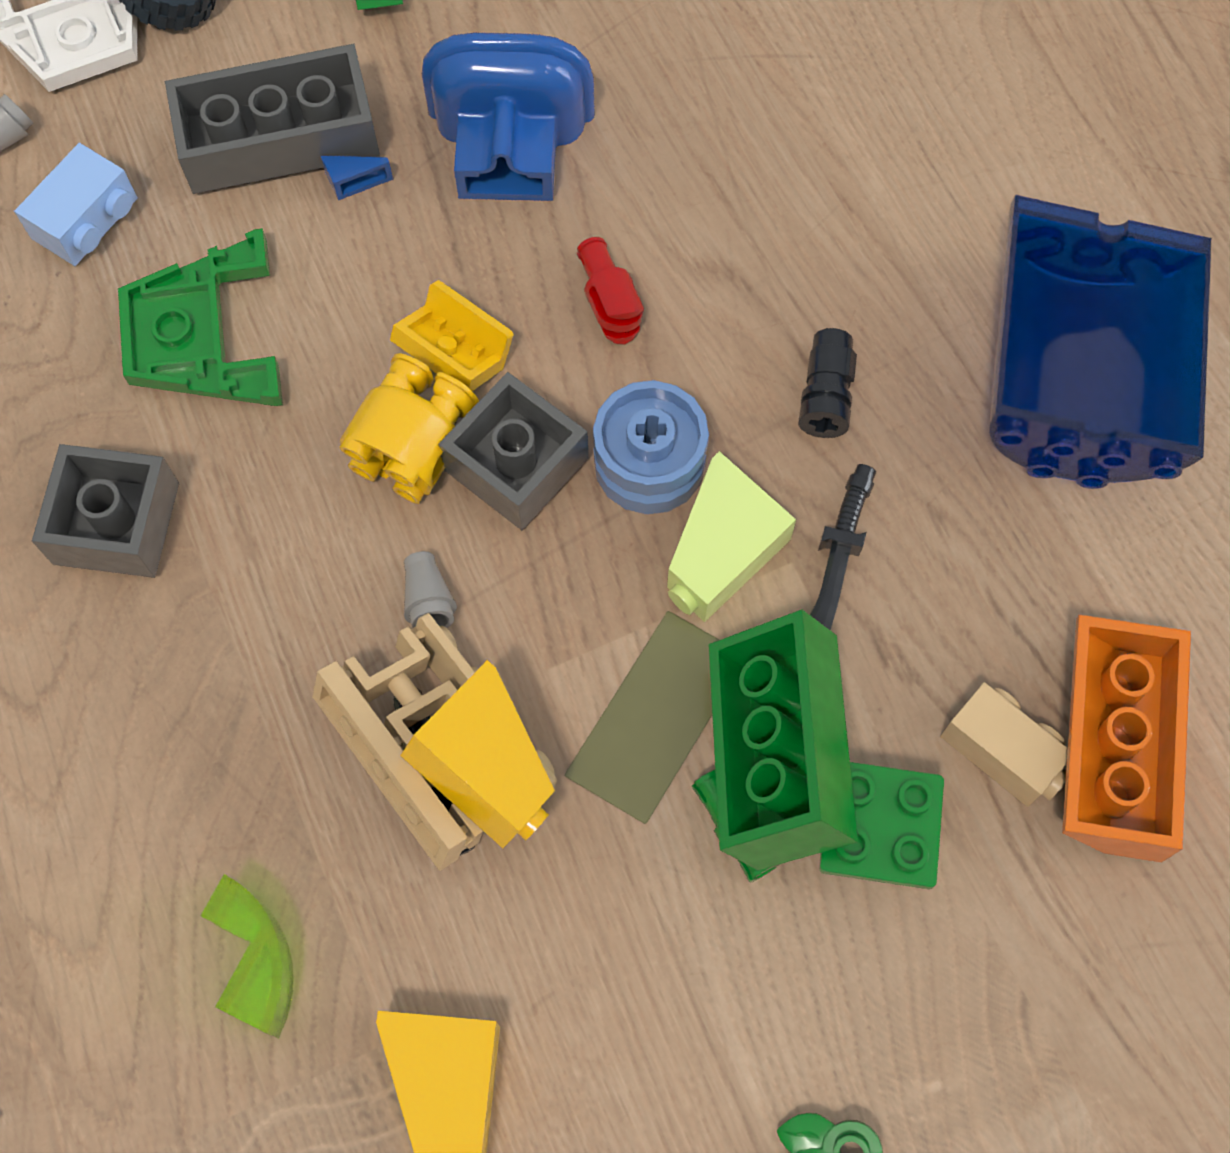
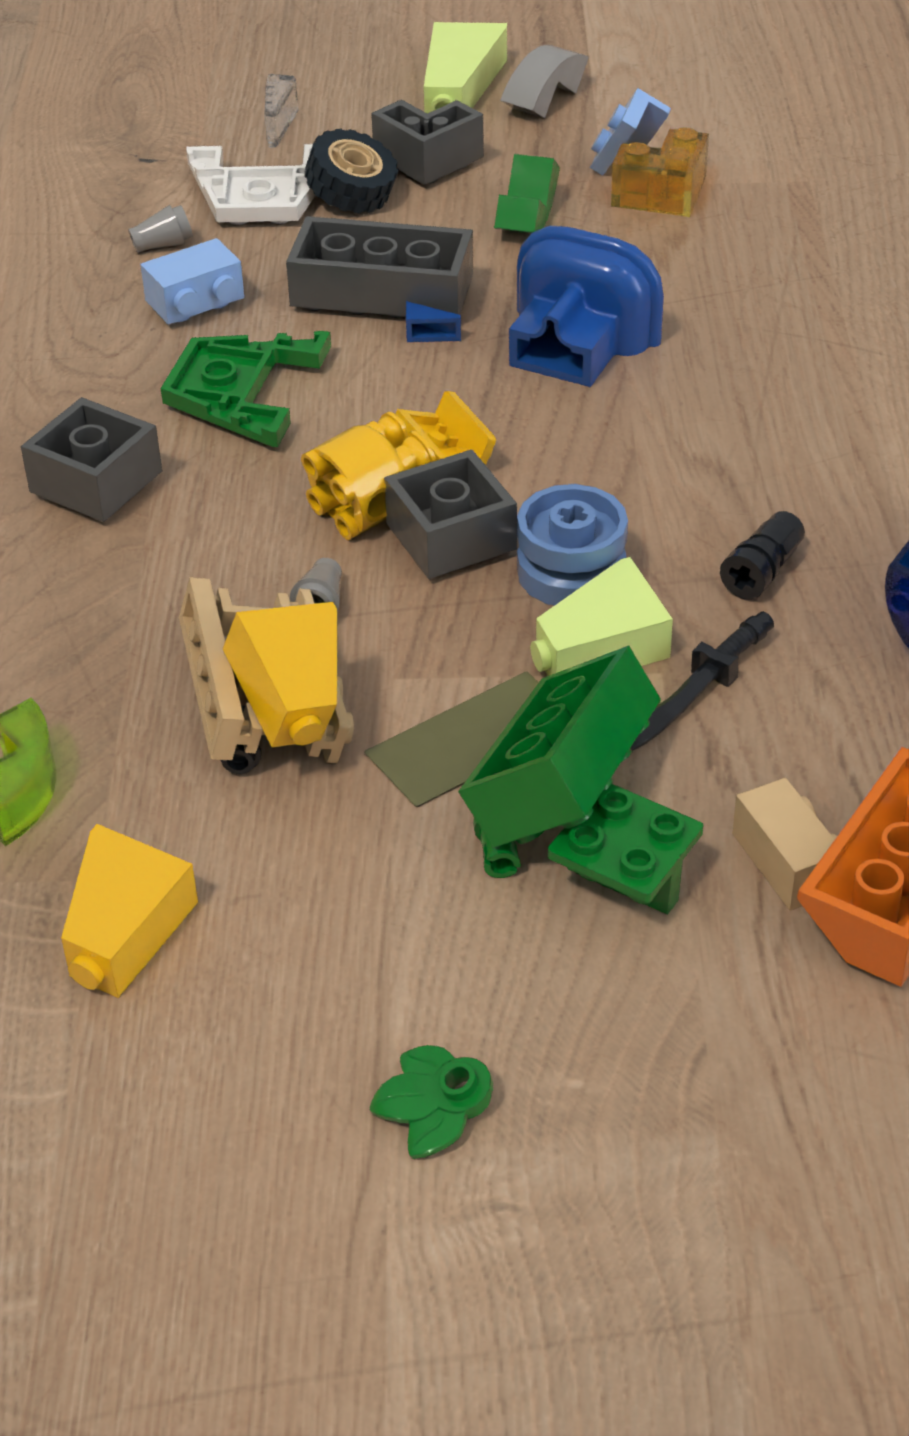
camera: 25 degrees right, 25 degrees down
(610, 292) = (601, 447): red arm -> none

